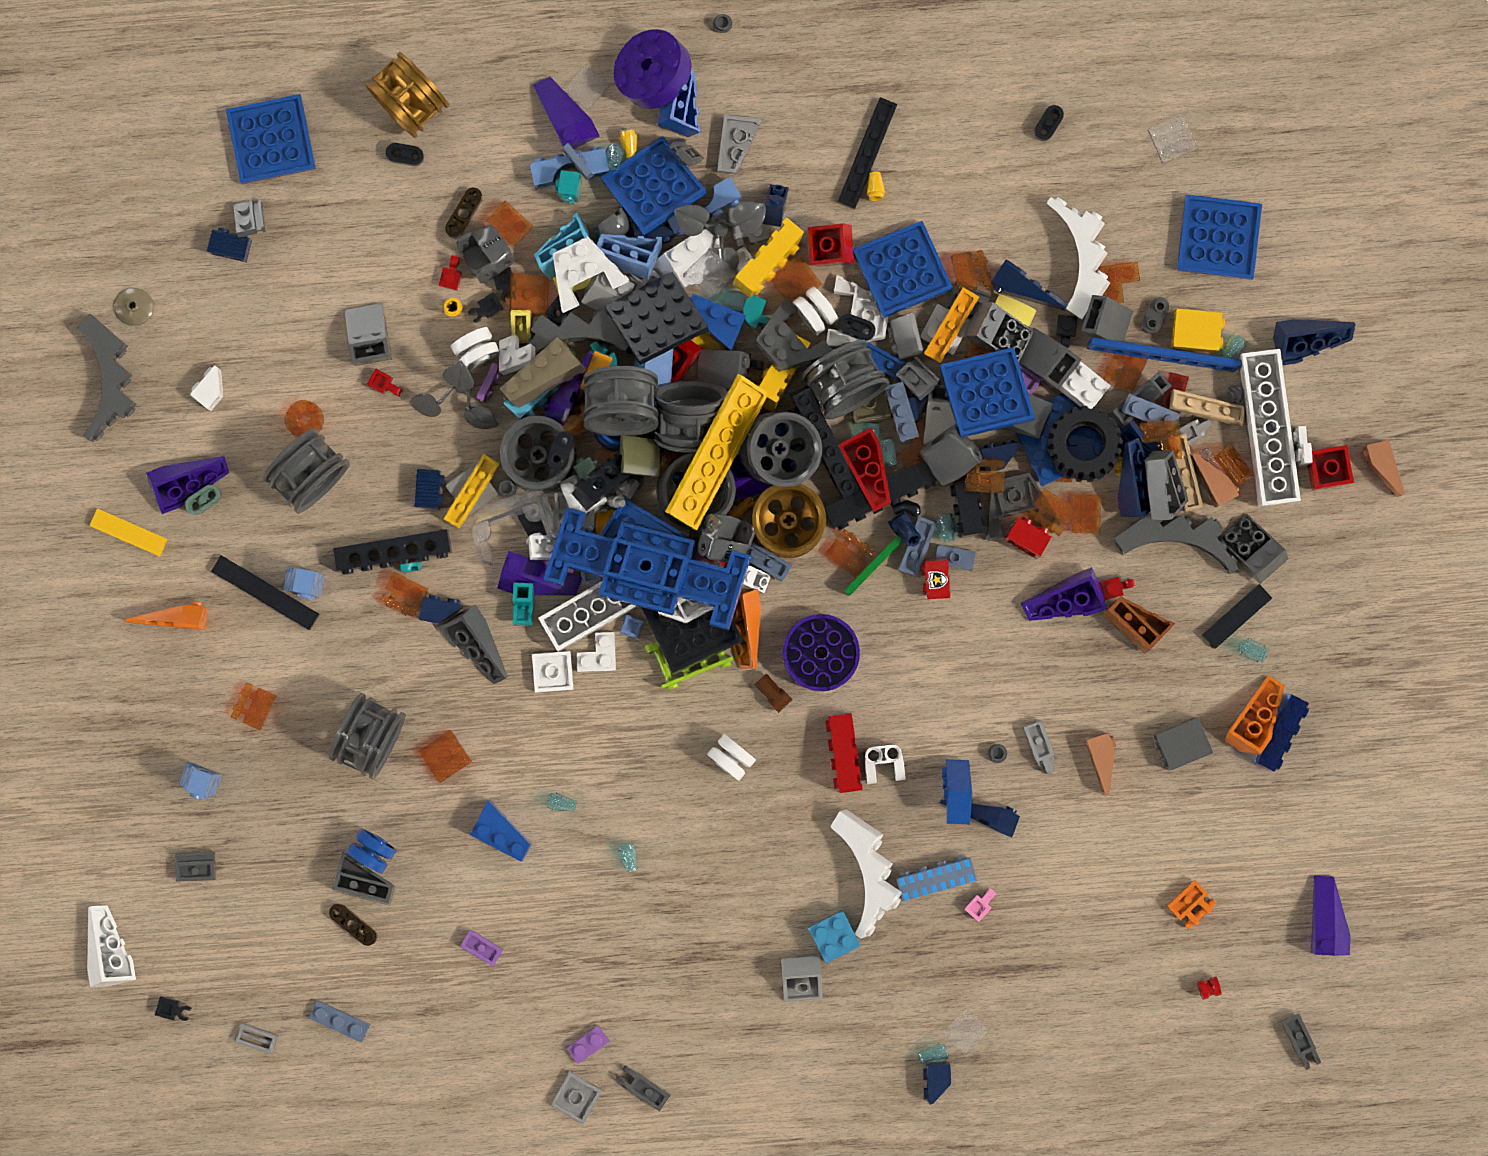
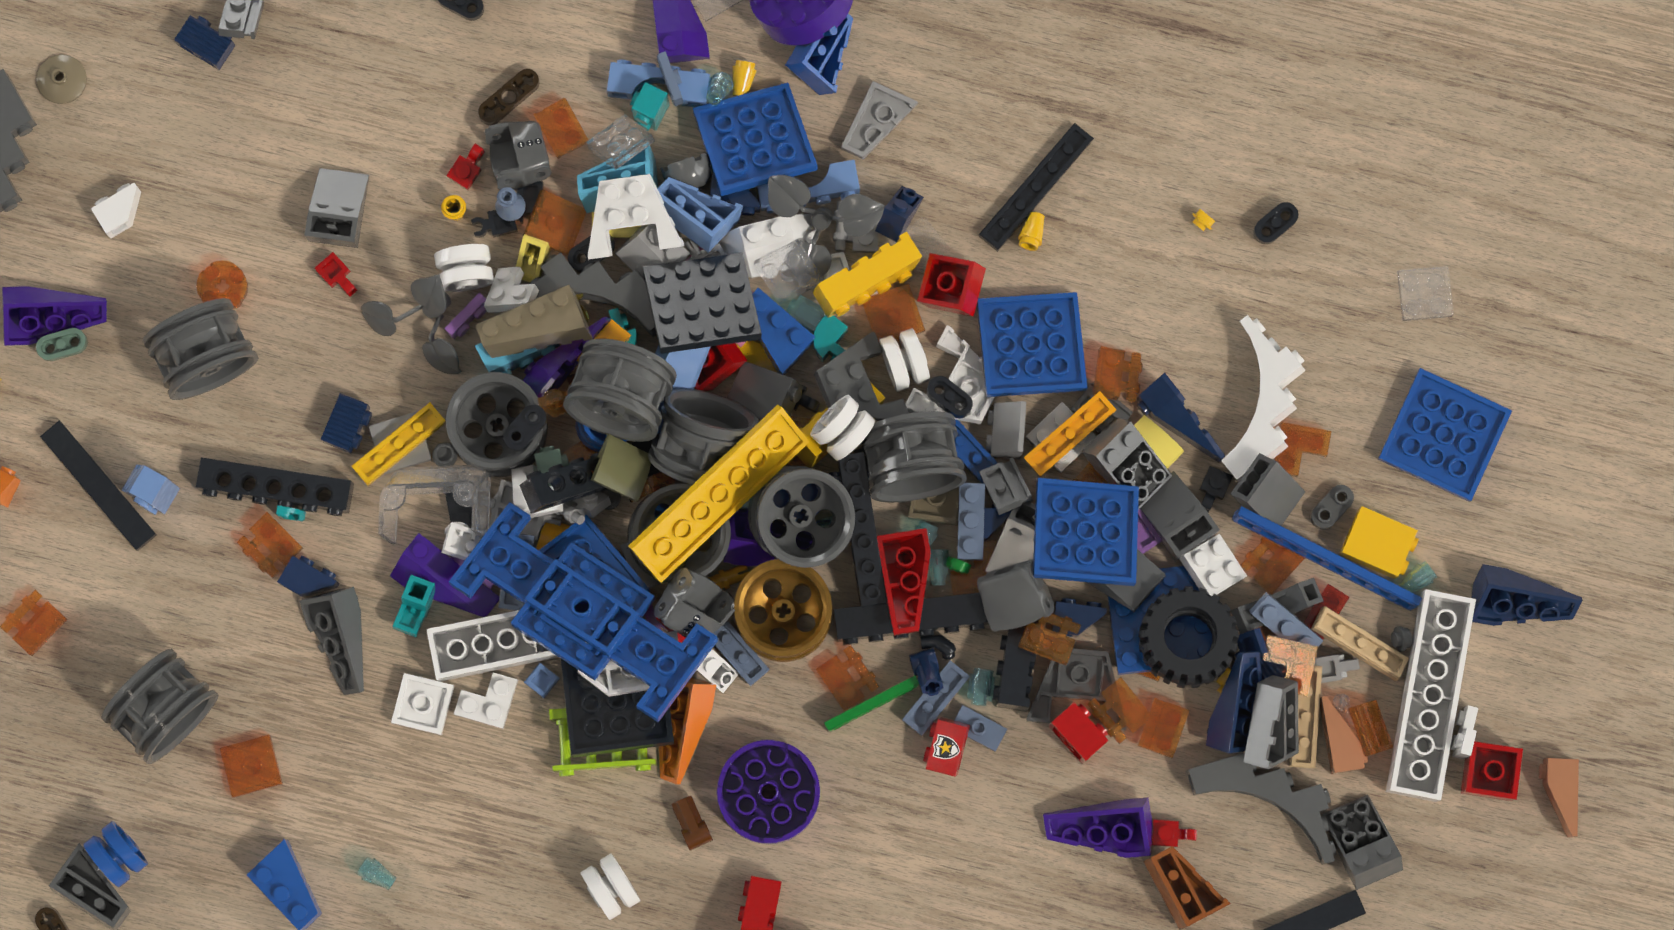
camera: 15 degrees right, 5 degrees down
(492, 292) = (509, 204): none -> sand blue piece
(556, 219) = (620, 141): none -> clear plate
(686, 154) = (809, 115): dark grey plate -> none
(789, 375) = (842, 427): none -> white wheel
(902, 446) = (957, 565): none -> green tile
(995, 138) = (1203, 220): none -> yellow plate

